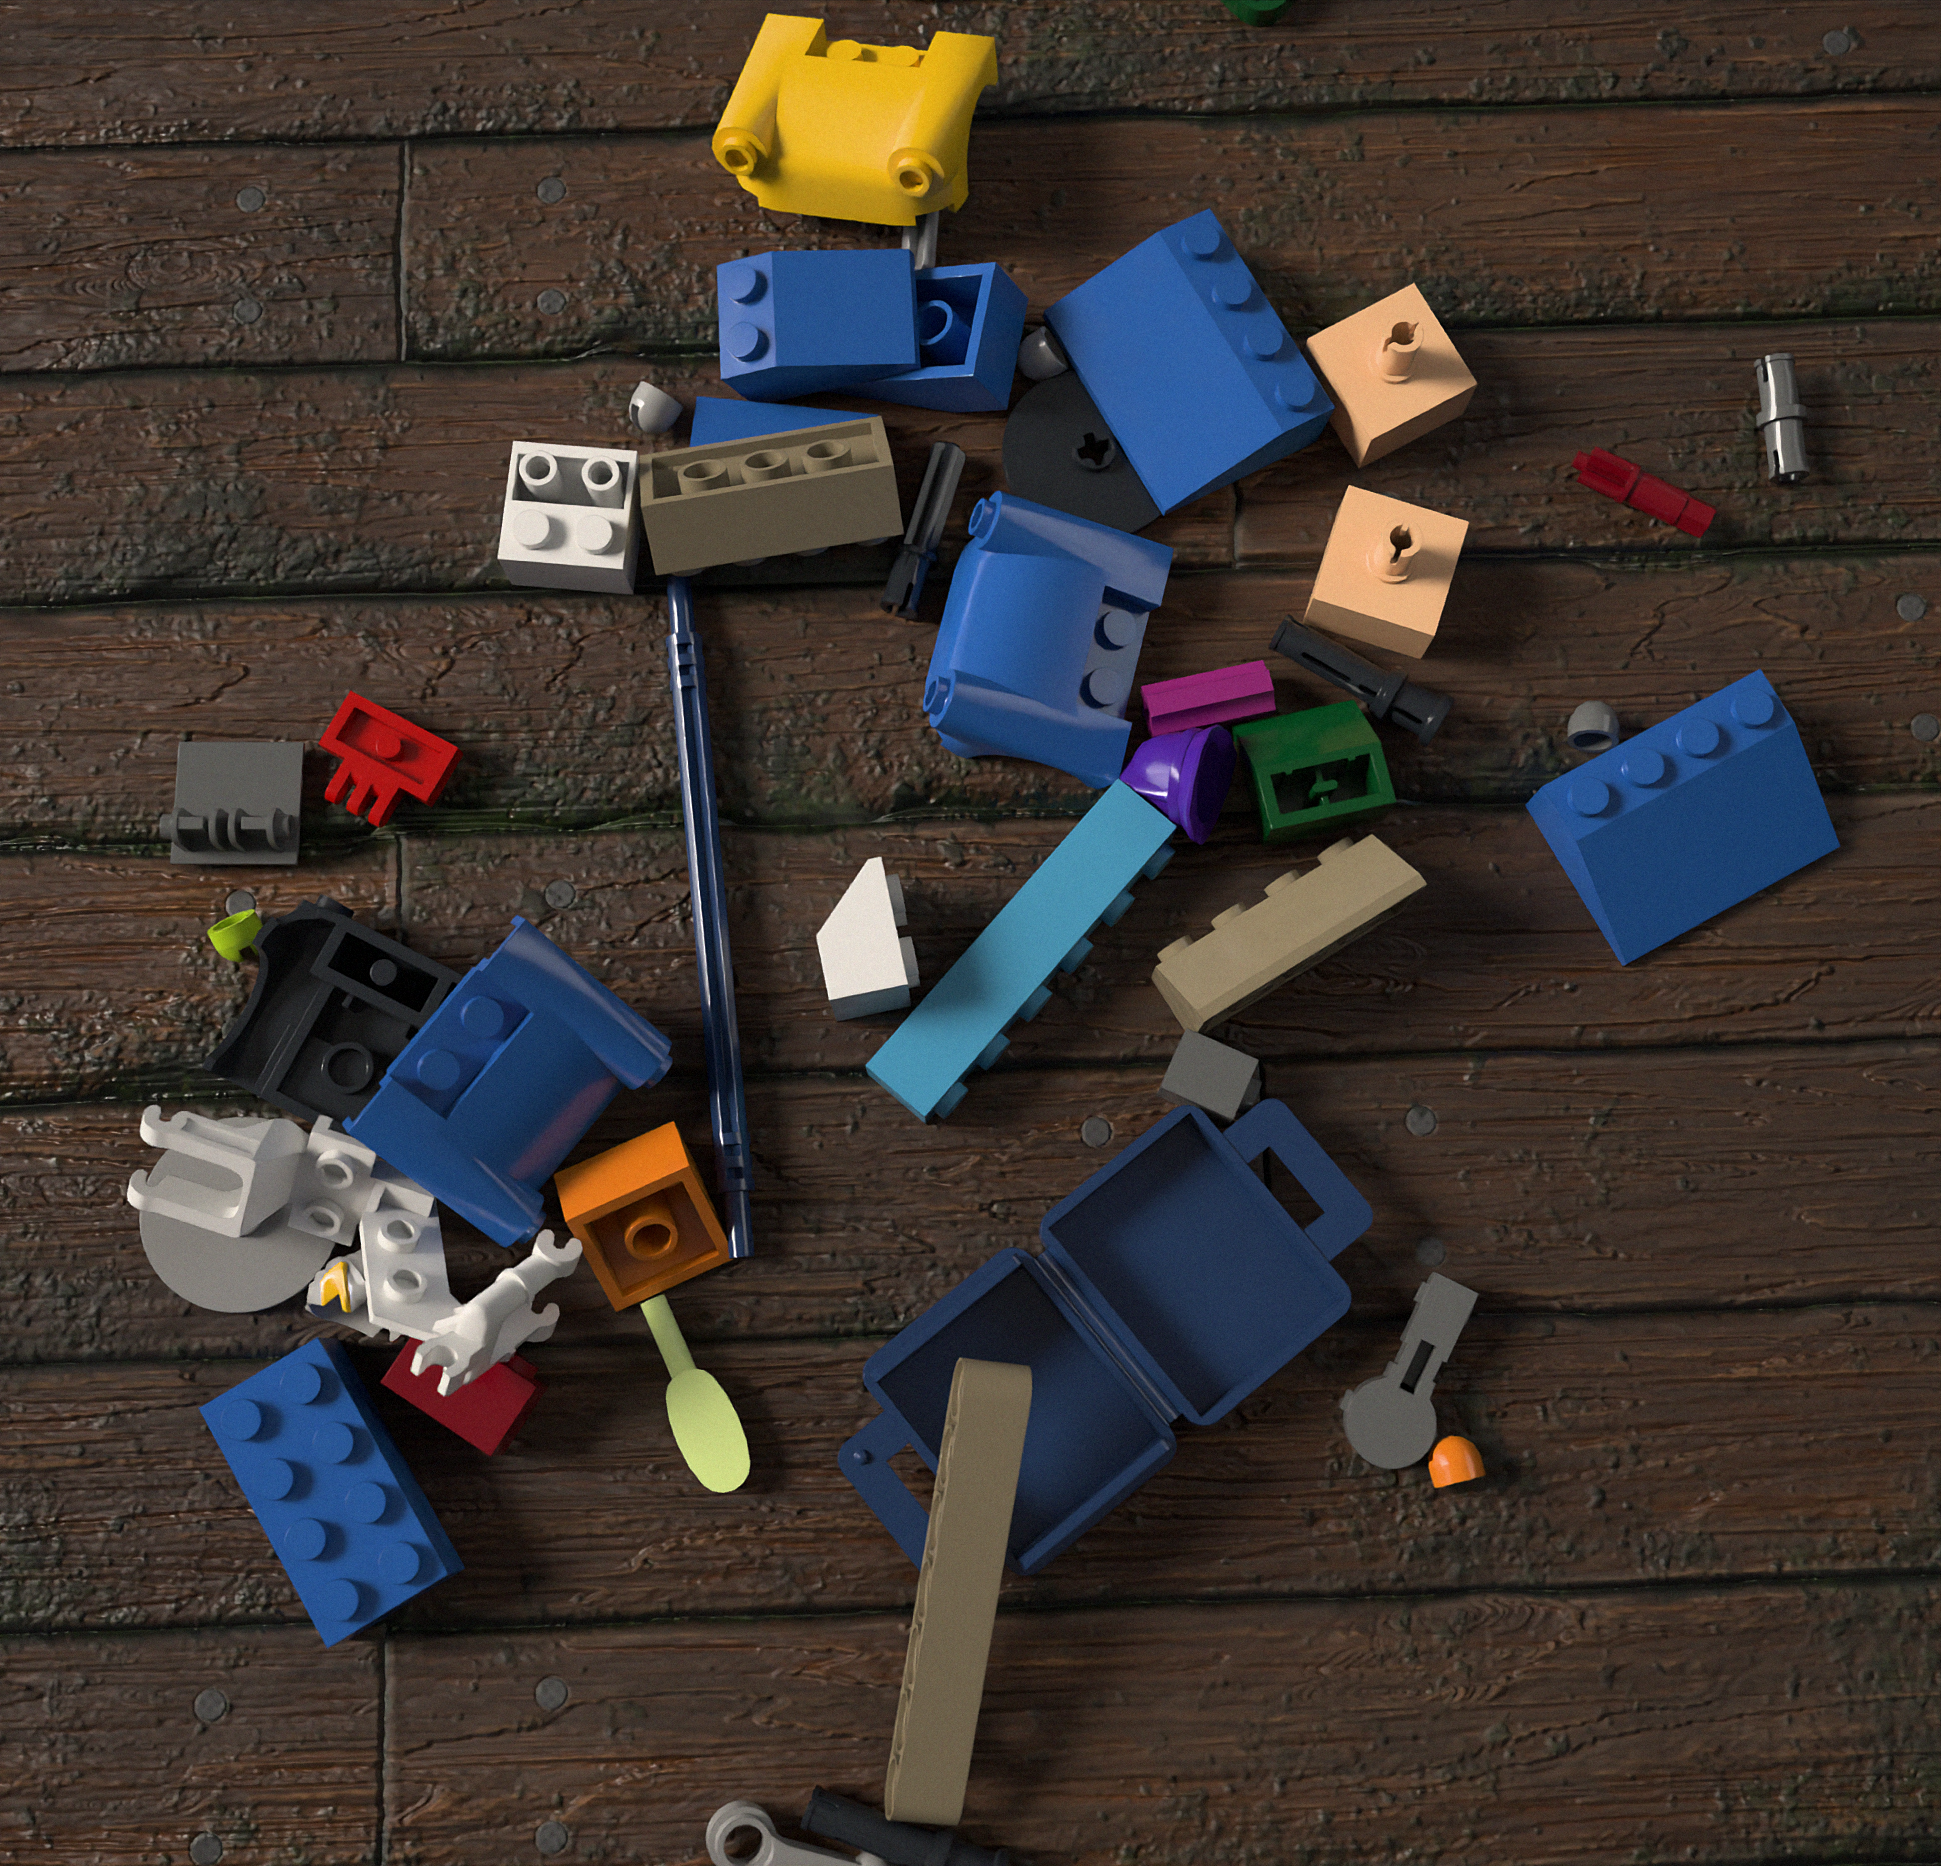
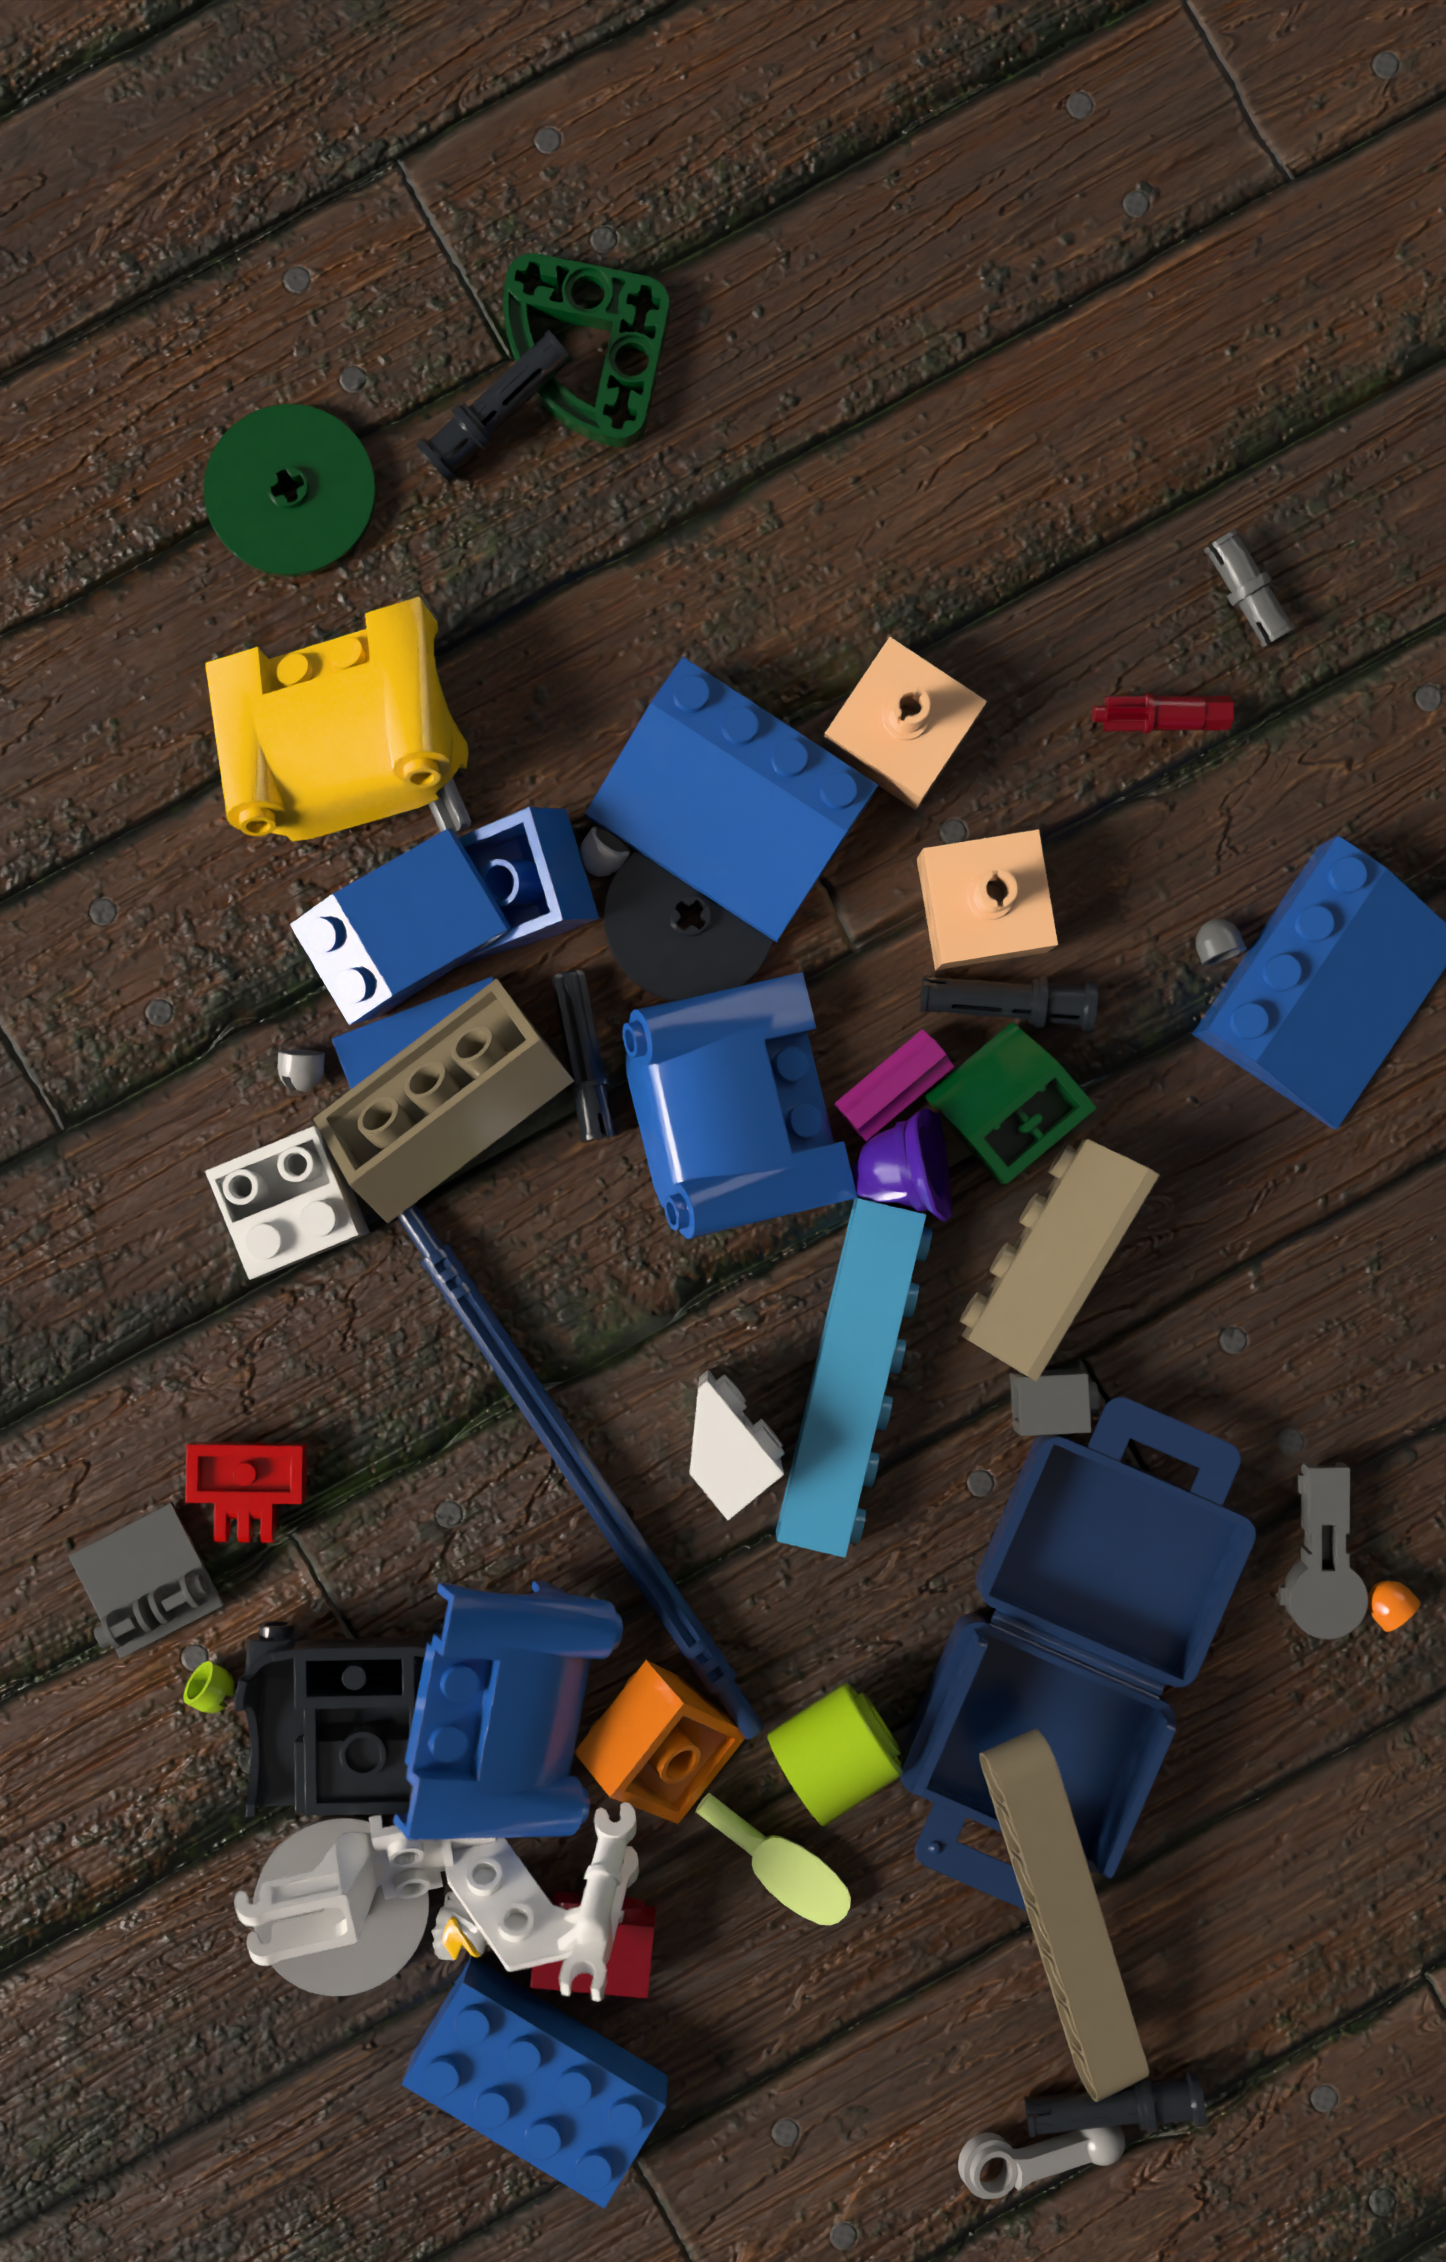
camera: 25 degrees left, 10 degrees up
(813, 1308) = (836, 1753): none -> lime piece

